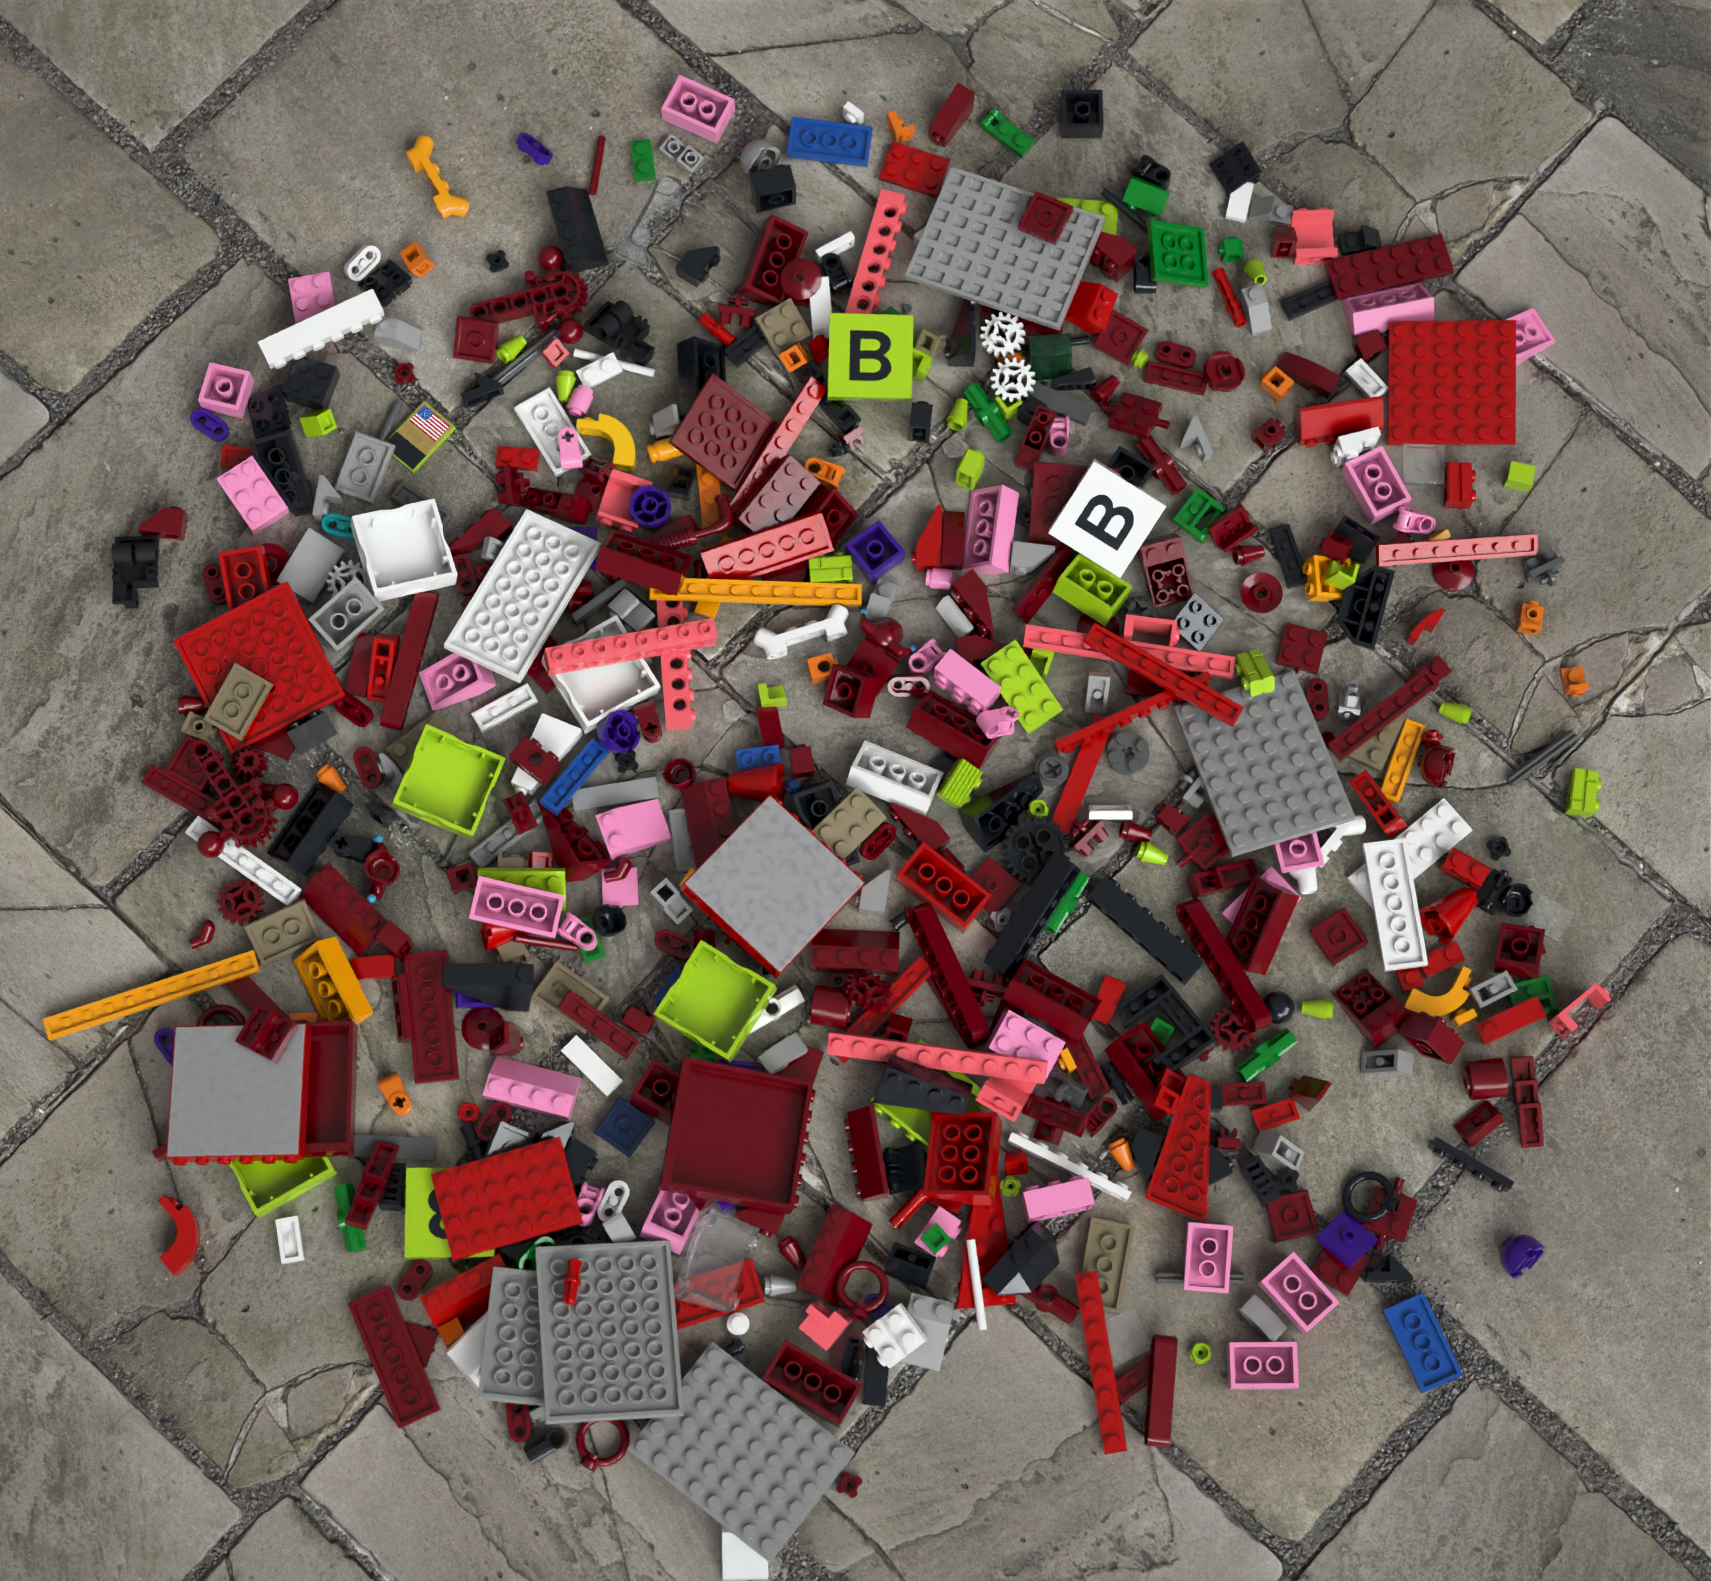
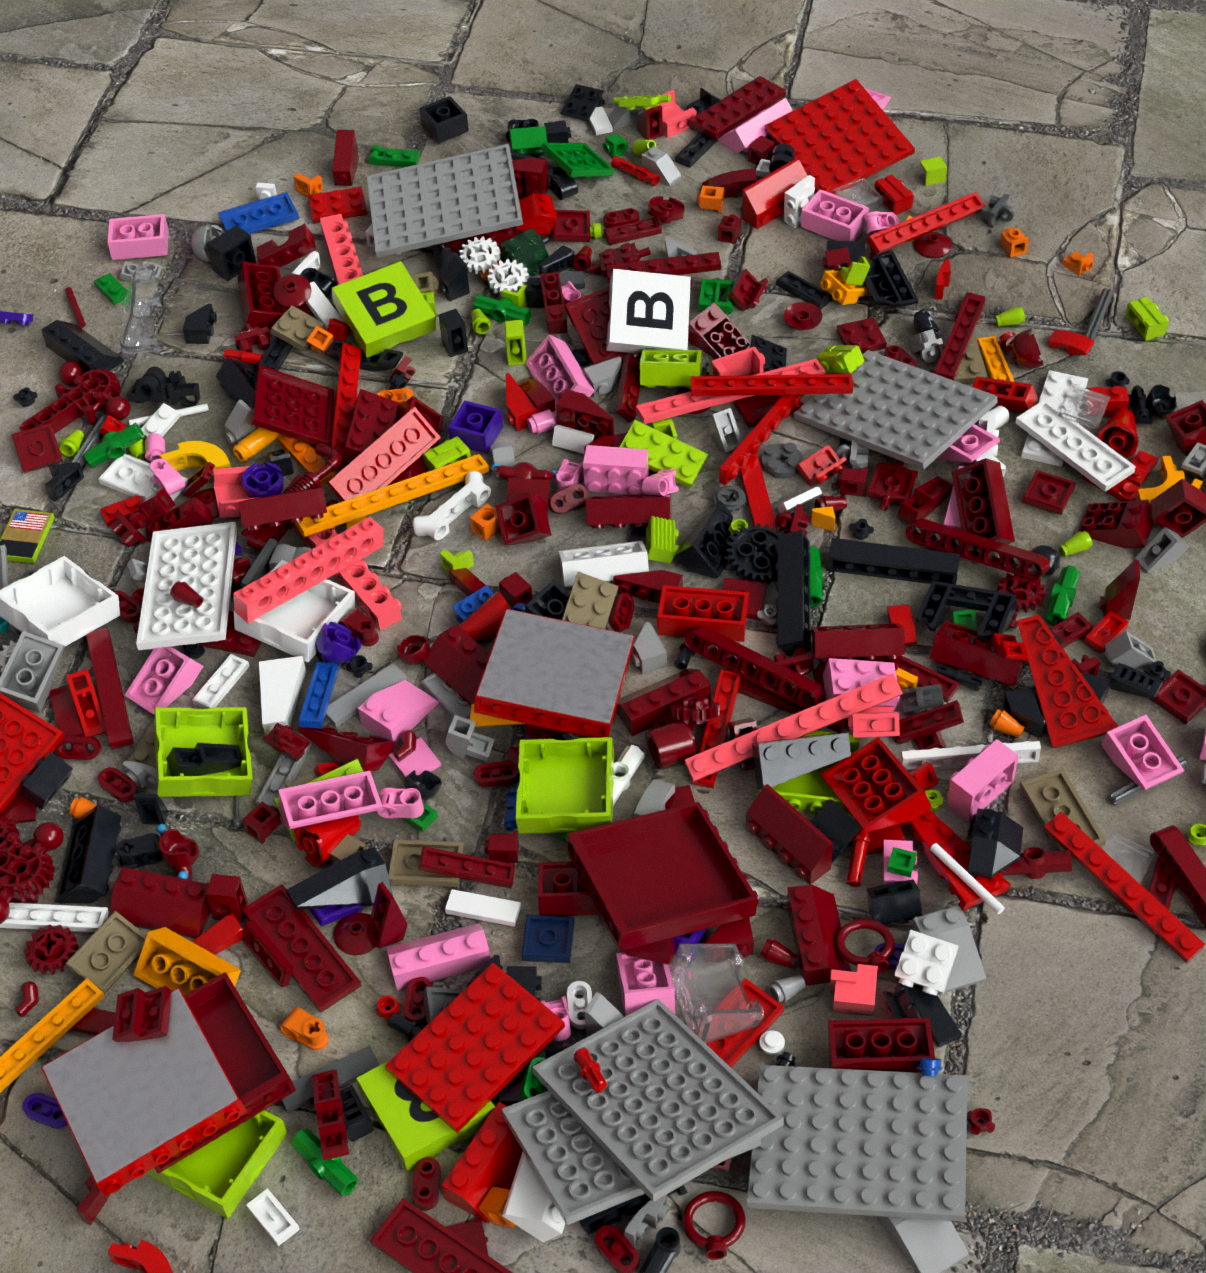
camera: 25 degrees left, 25 degrees down
(445, 791) = (204, 759): none -> black slope
(491, 524) = (118, 573): dark red slope -> none
(510, 616) = (186, 594): none -> dark red cone
(543, 381) = (114, 445): none -> green piece
(544, 769) = (275, 693): dark red brick -> none
(545, 477) = (156, 505): none -> dark red brick
(545, 942) = (374, 828): dark red bar -> none
(831, 1428) = (930, 1066): none -> blue plate
(841, 218) = (299, 244): none -> dark red arch
(1045, 218) = (463, 162): dark red plate -> none
(1098, 1118) = (966, 696): dark red piece -> none
(1118, 844) = (823, 518): none -> light orange slope
(1148, 870) = (861, 529): none -> black plate
(1151, 854) = (853, 512): lime cone -> none
(1156, 784) = (819, 465): none -> red bracket
(1167, 456) = (673, 265): none -> dark red plate
(1183, 199) = (557, 132): none -> black brick
(1247, 553) = (772, 300): dark red cone -> none
(1285, 216) = (644, 101): none -> lime plate
(1368, 674) = (924, 322): none -> black hair
(1374, 379) = (781, 156): none -> black wheel
(1431, 871) = (1084, 406): none -> clear tile
(1490, 776) = (1075, 343): none -> red slope

